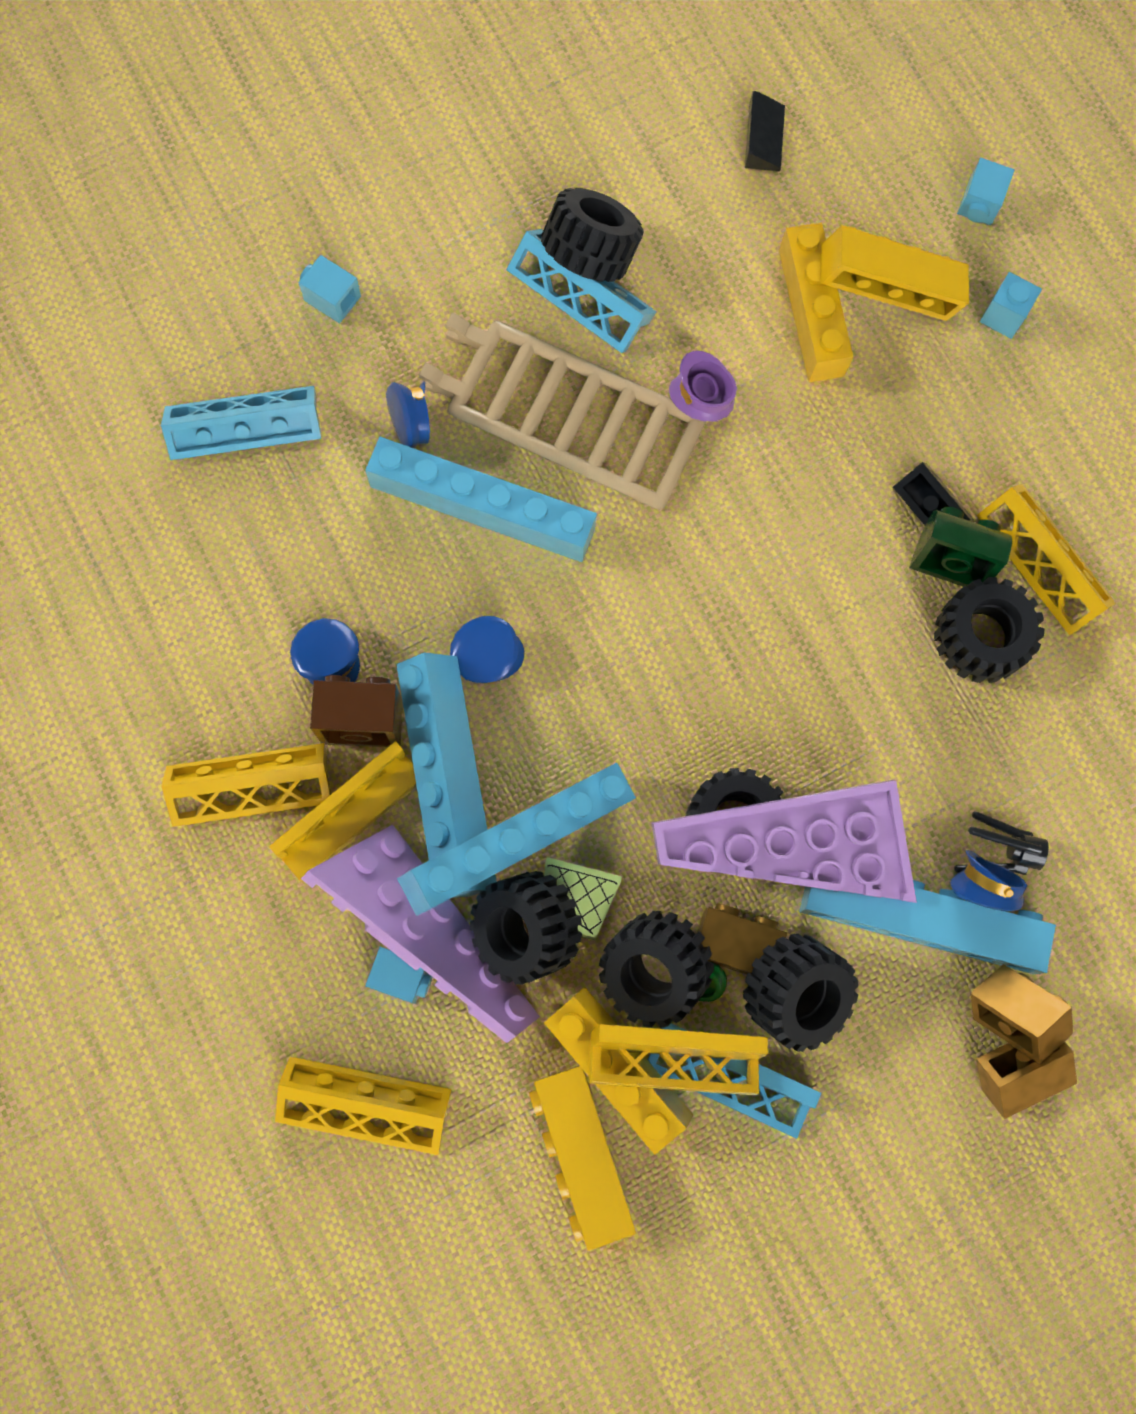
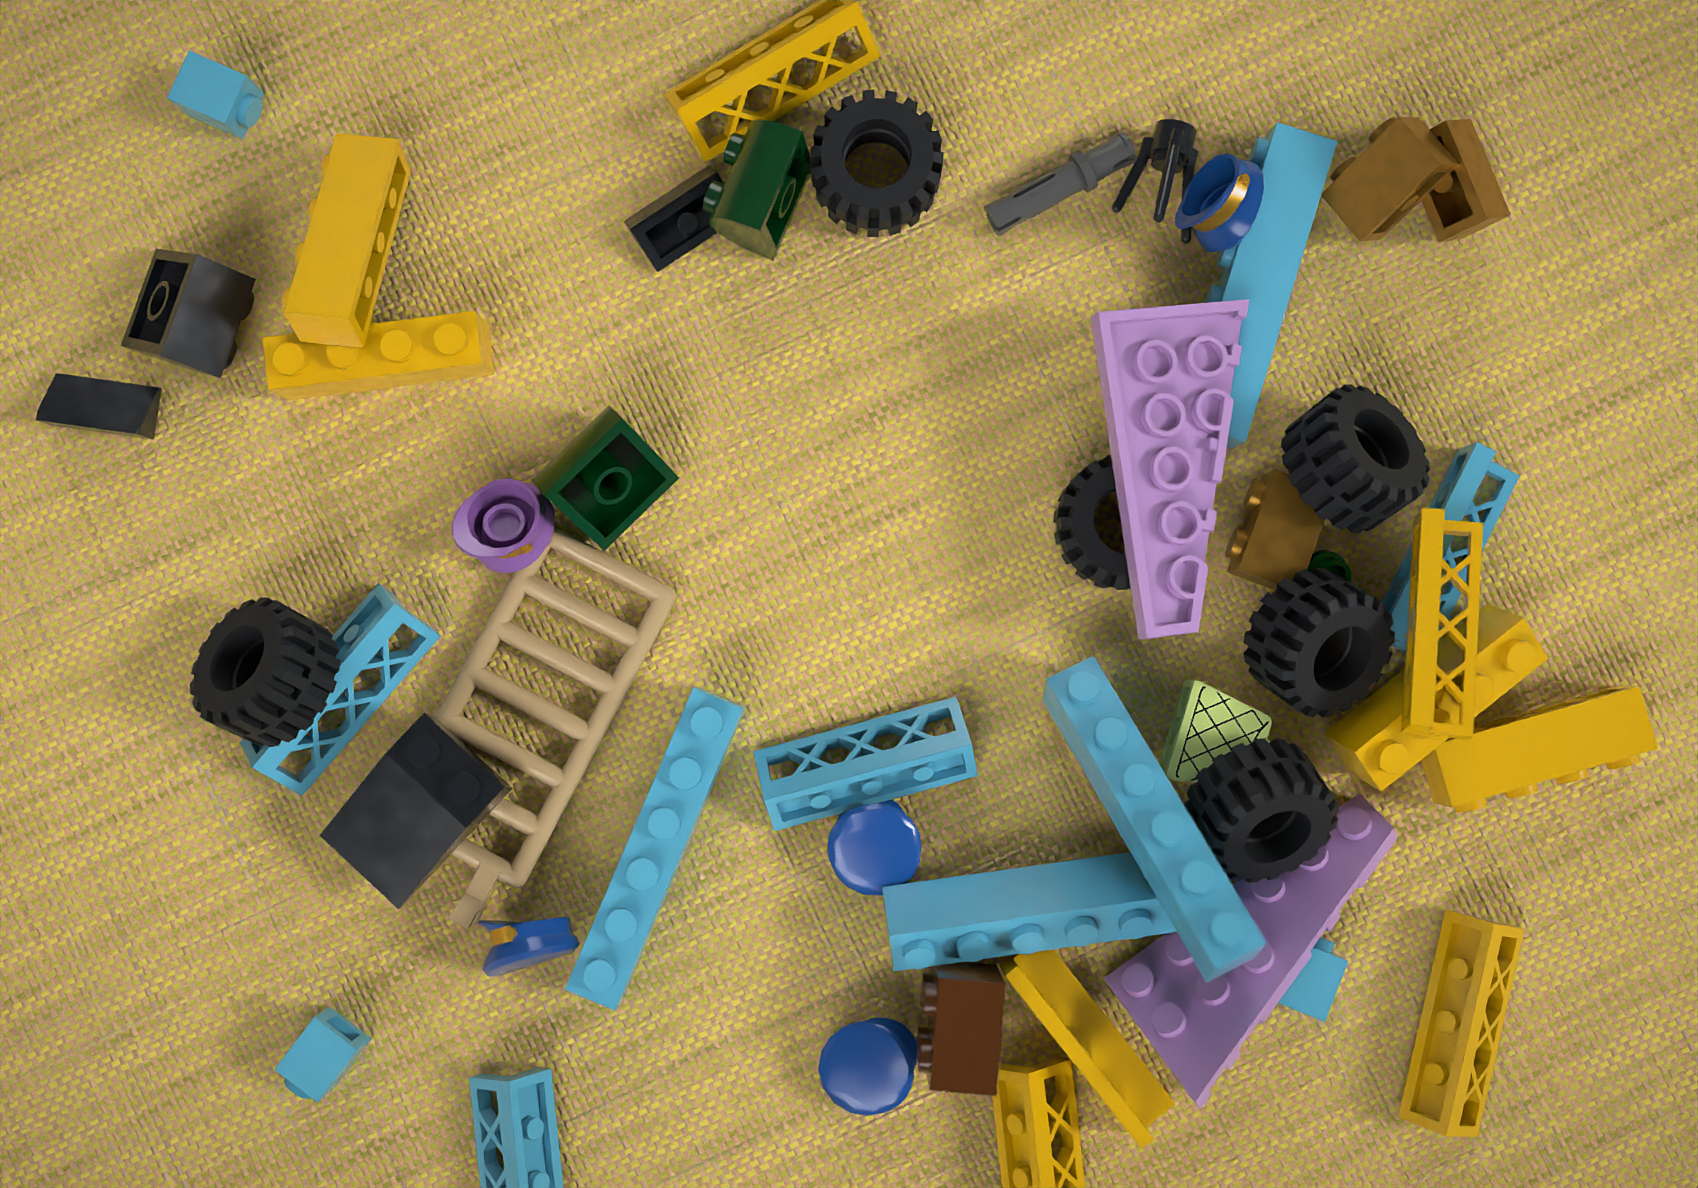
camera: 85 degrees left, 10 degrees up
(503, 335) = (414, 809): none -> black slope
(538, 644) = (867, 772): none -> medium azure fence
(742, 451) = (605, 478): none -> dark green brick
(834, 183) = (189, 312): none -> black slope
(989, 769) = (1048, 190): none -> dark grey pin
(1010, 305) = (398, 79): medium azure brick -> none

